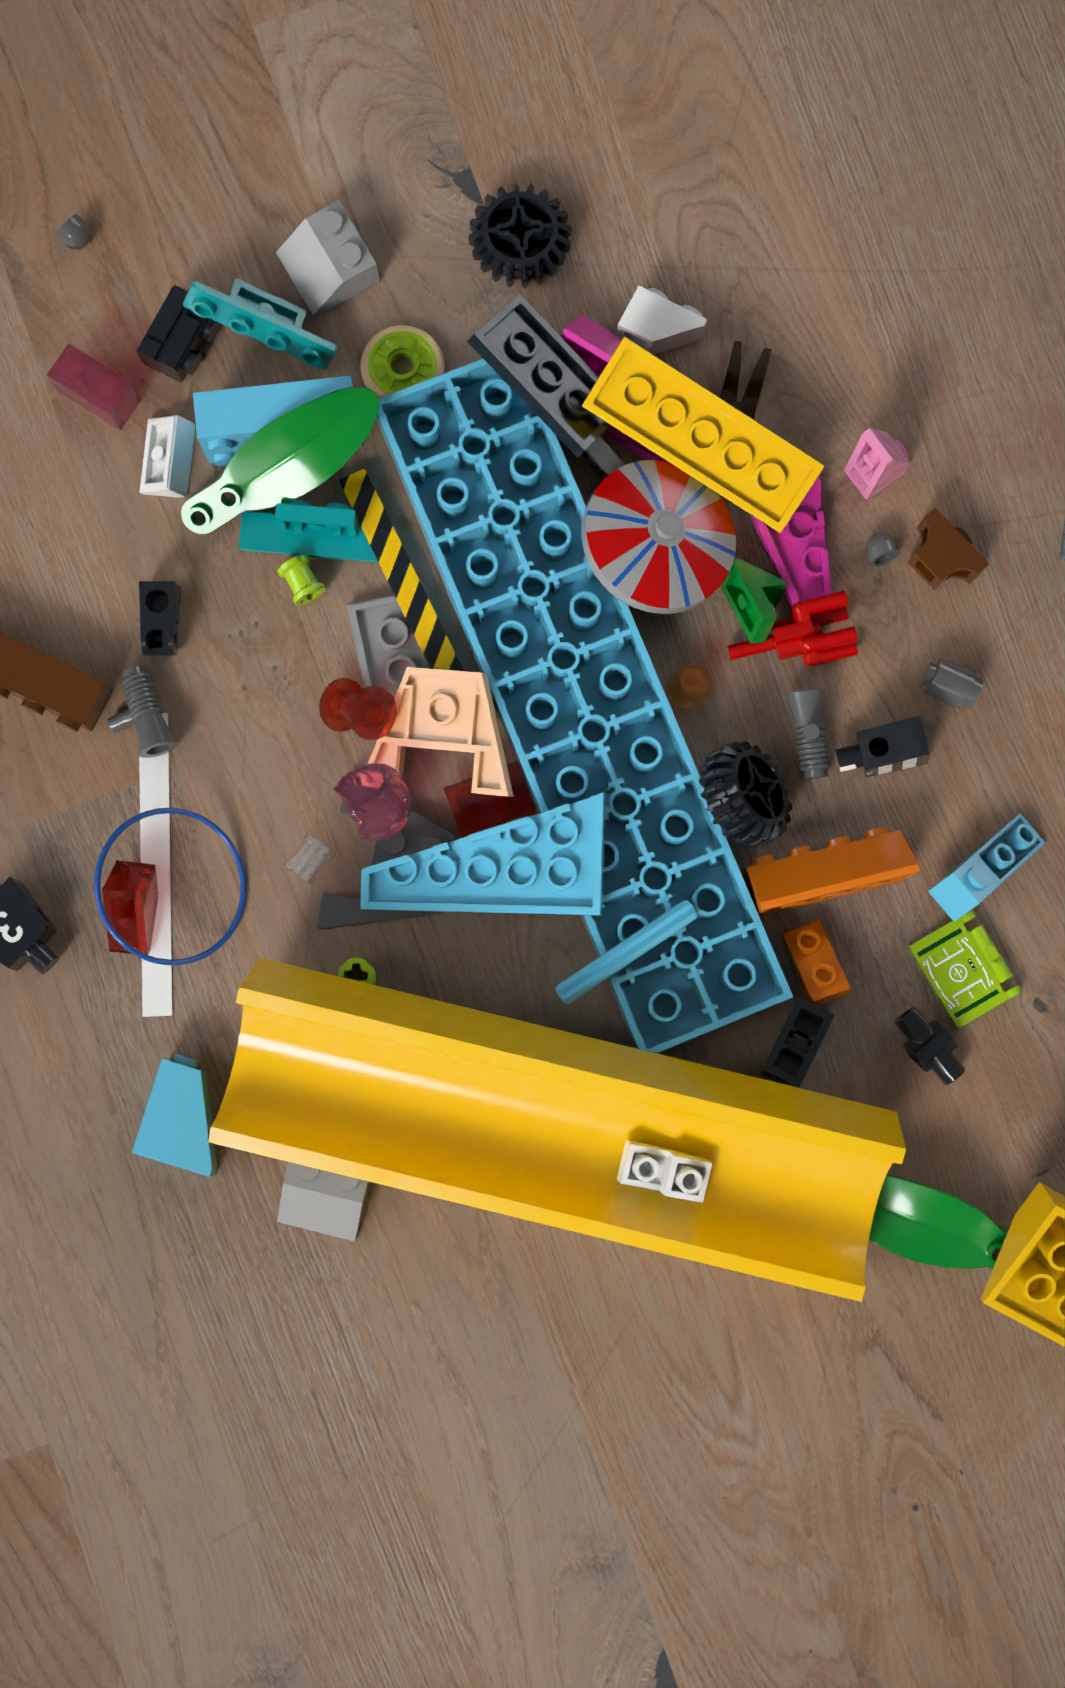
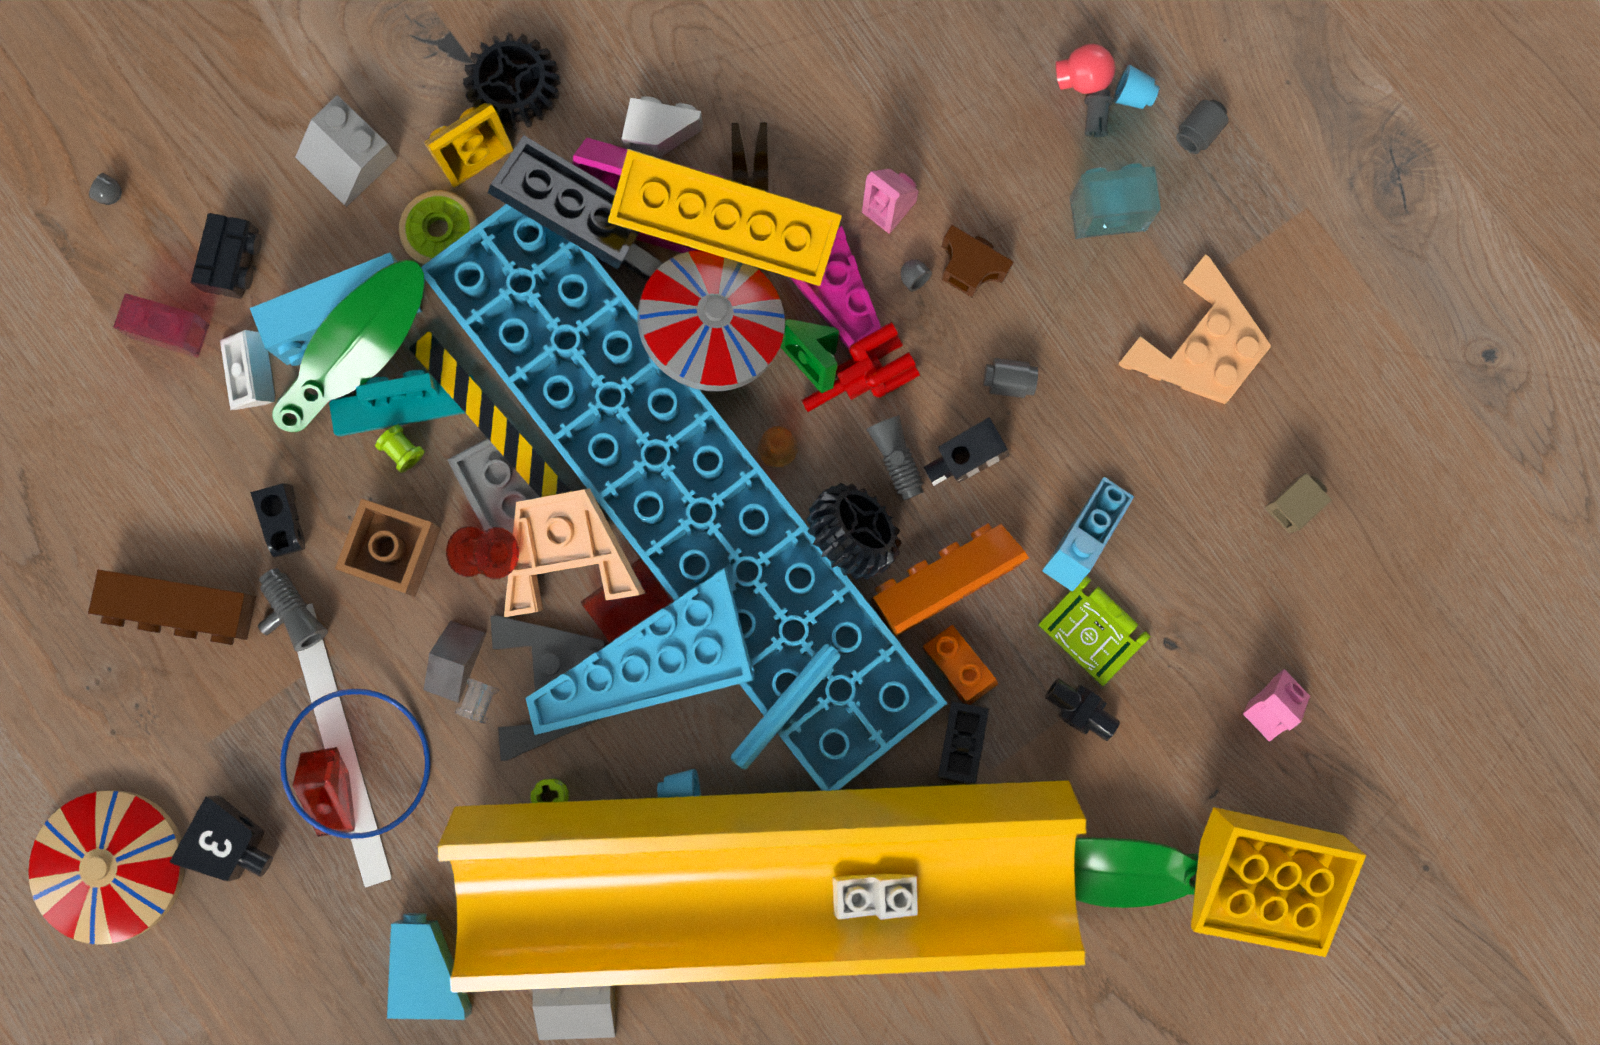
camera: 15 degrees left, 0 degrees up
(262, 317) = (298, 220): teal bracket -> none
(262, 677) = (388, 547): none -> medium nougat brick
(295, 812) = (452, 661): none -> flat silver slope
(375, 800) = (521, 632): clear pink piece -> none
(459, 287) = (469, 144): none -> yellow slope
(493, 1002) = (680, 785): none -> medium azure hat

